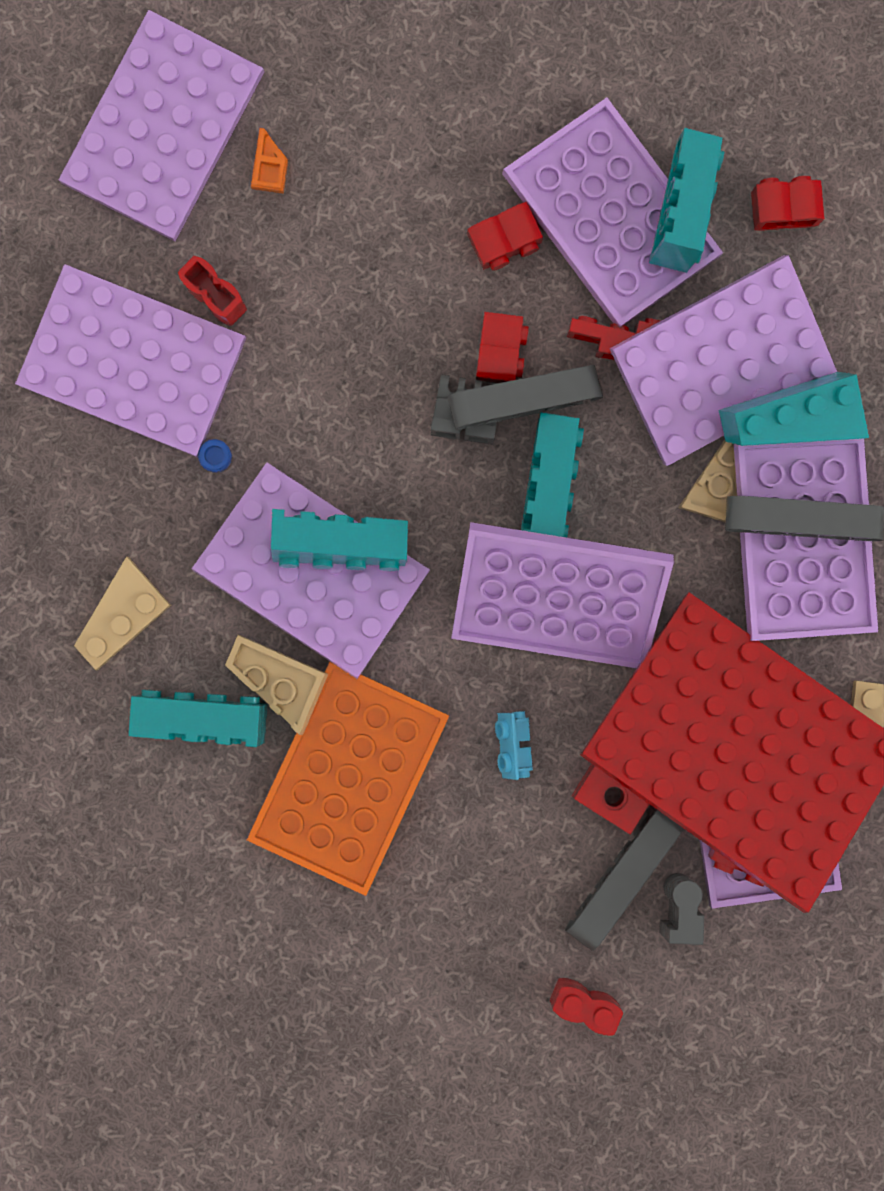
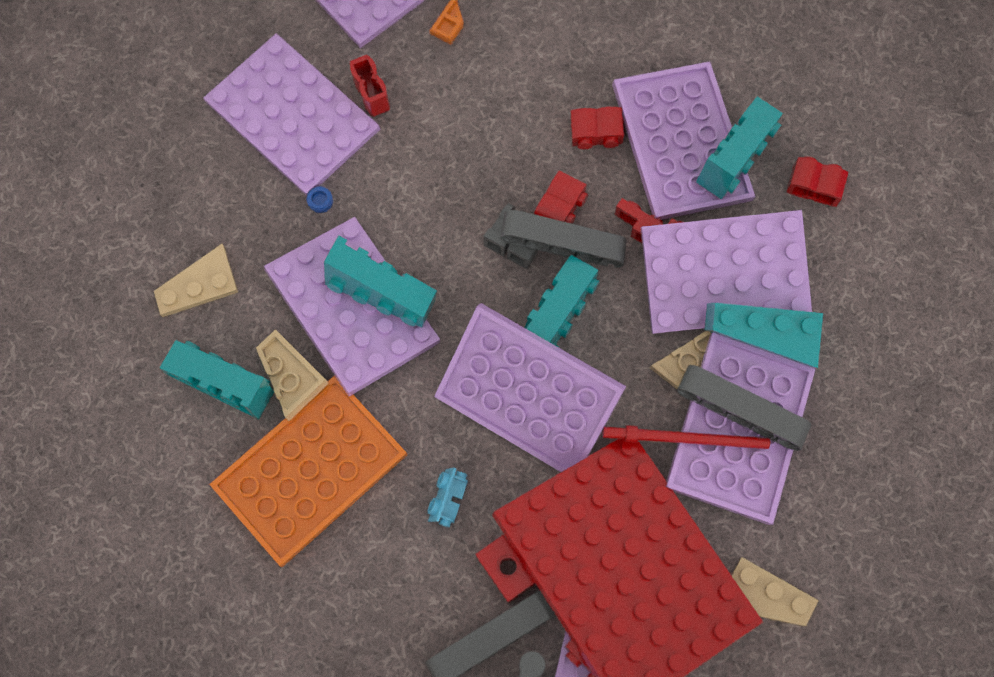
camera: 30 degrees right, 15 degrees down
(696, 599) = (632, 434): none -> red bar

